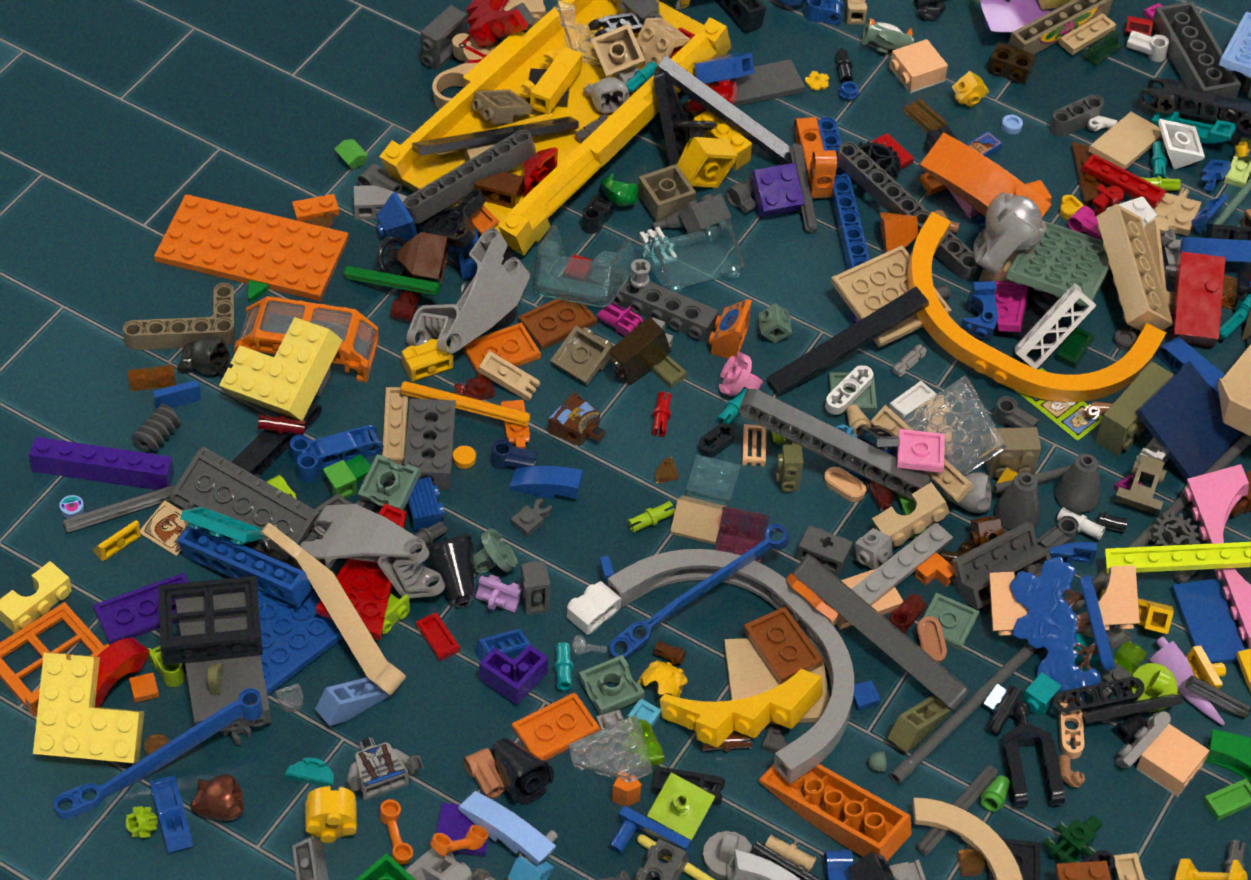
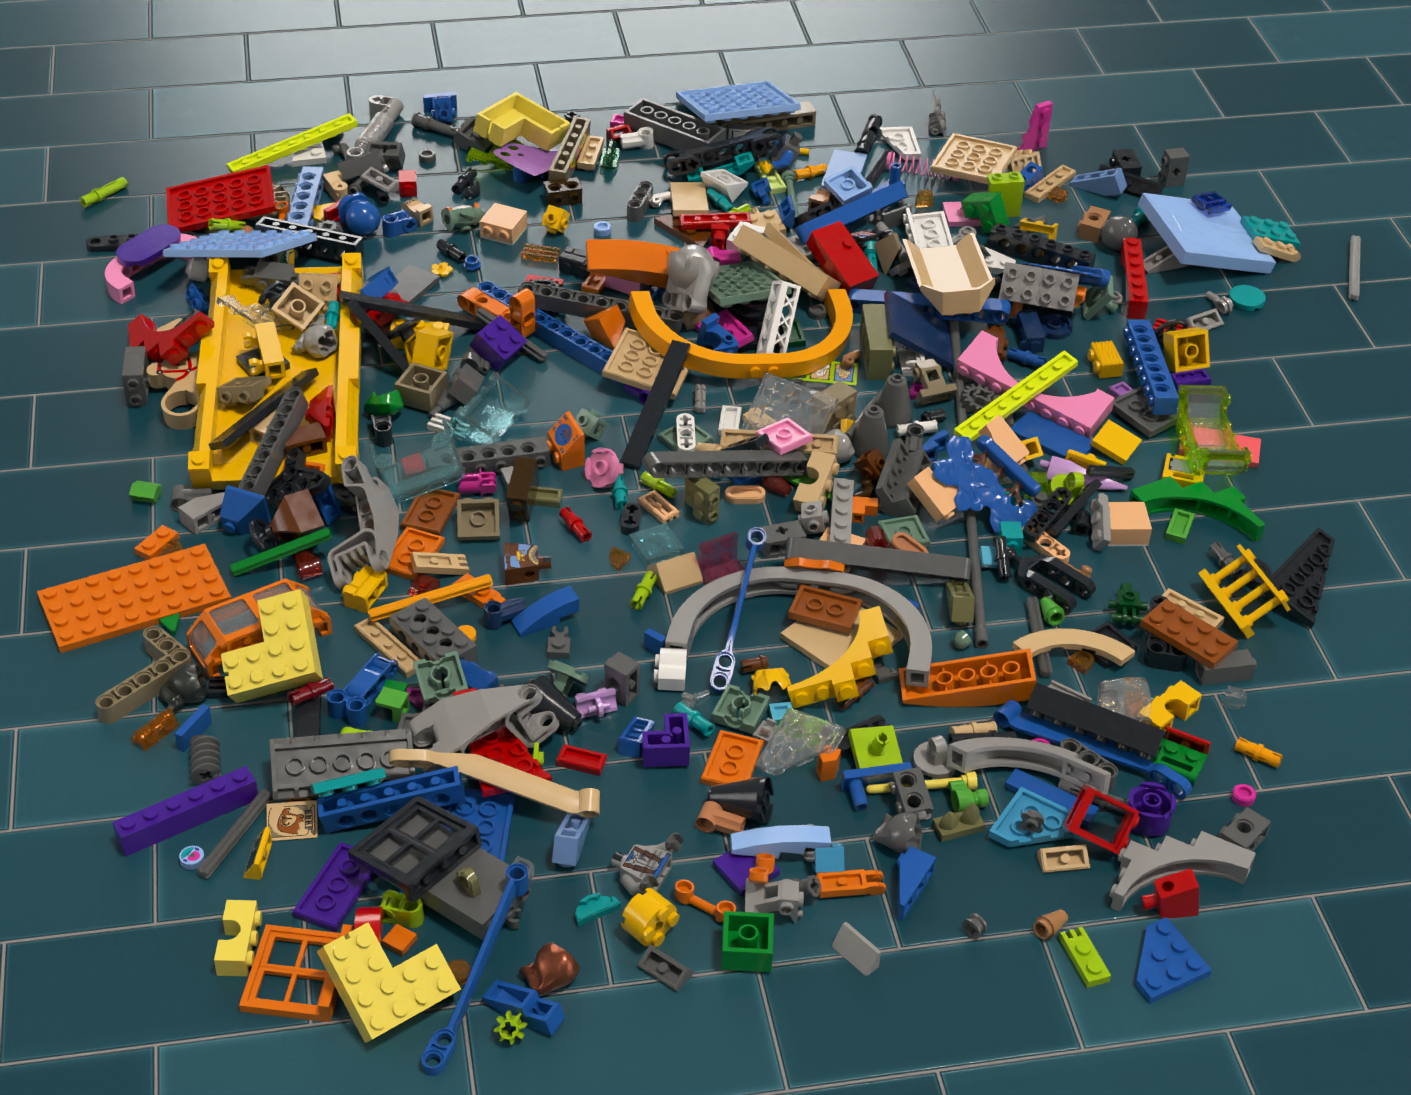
camera: 40 degrees left, 10 degrees down
(582, 134) = (327, 370): dark grey axle -> none
(640, 272) = (467, 441): light grey bush -> none

